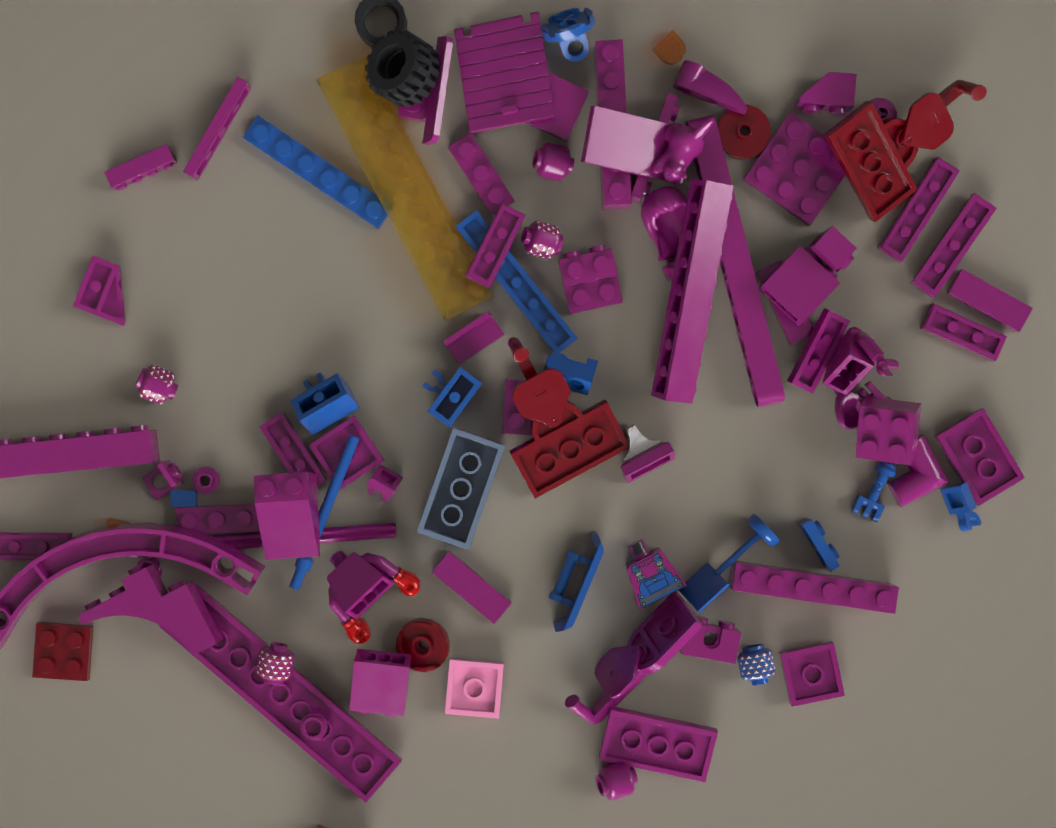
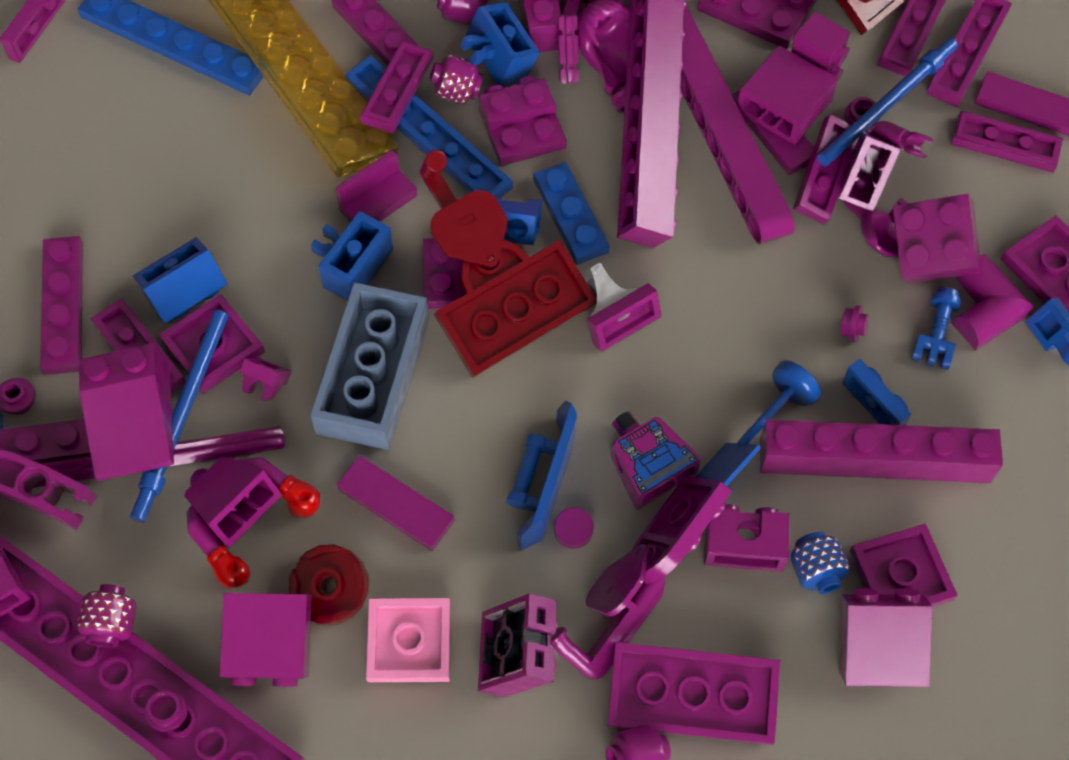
camera: 10 degrees left, 25 degrees down
(236, 406) = (61, 305): none -> magenta plate
(545, 707) = (517, 645): none -> piece
(580, 212) = (500, 43): none -> blue brick
(593, 617) = (574, 528): none -> magenta tile
(619, 364) = (571, 213): none -> blue plate
(633, 222) = (568, 48): none -> magenta axle
(789, 726) = (885, 638): none -> brick
(814, 482) = (854, 323): none -> magenta plate
(863, 295) = (858, 107): none -> magenta plate
(916, 265) = (928, 64): none -> blue bar

